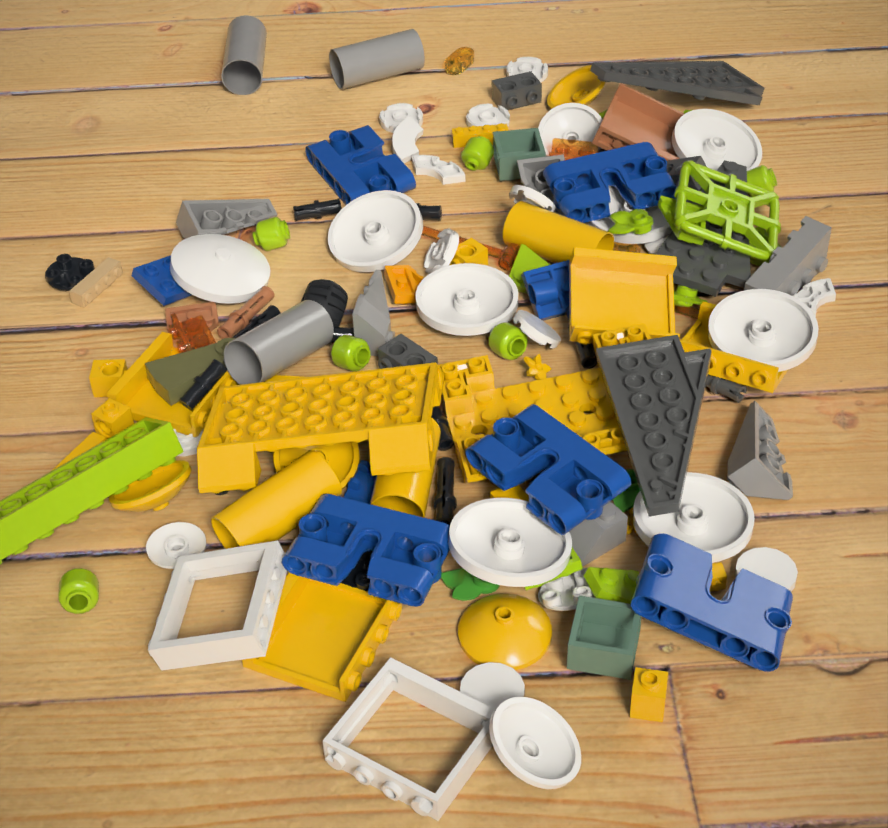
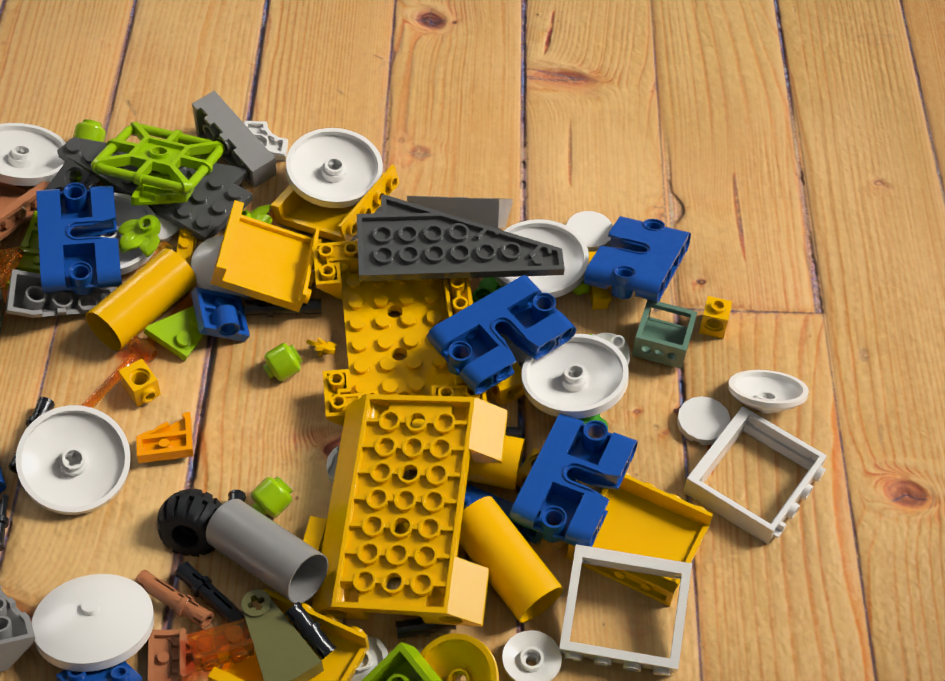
camera: 90 degrees left, 10 degrees up
(271, 233) = (35, 569): lime head -> none
(372, 315) = (214, 470): light grey wedge -> none
(403, 352) = (294, 443): dark grey brick -> none
(442, 252) = (133, 400): white tile -> none
(466, 299) = (215, 387): white dish -> none
(505, 631) = (646, 417): yellow dish -> none
(530, 196) = (83, 307): white tile -> none
(537, 329) = (273, 334): white tile -> none
(612, 583) = (609, 318): lime wing -> none

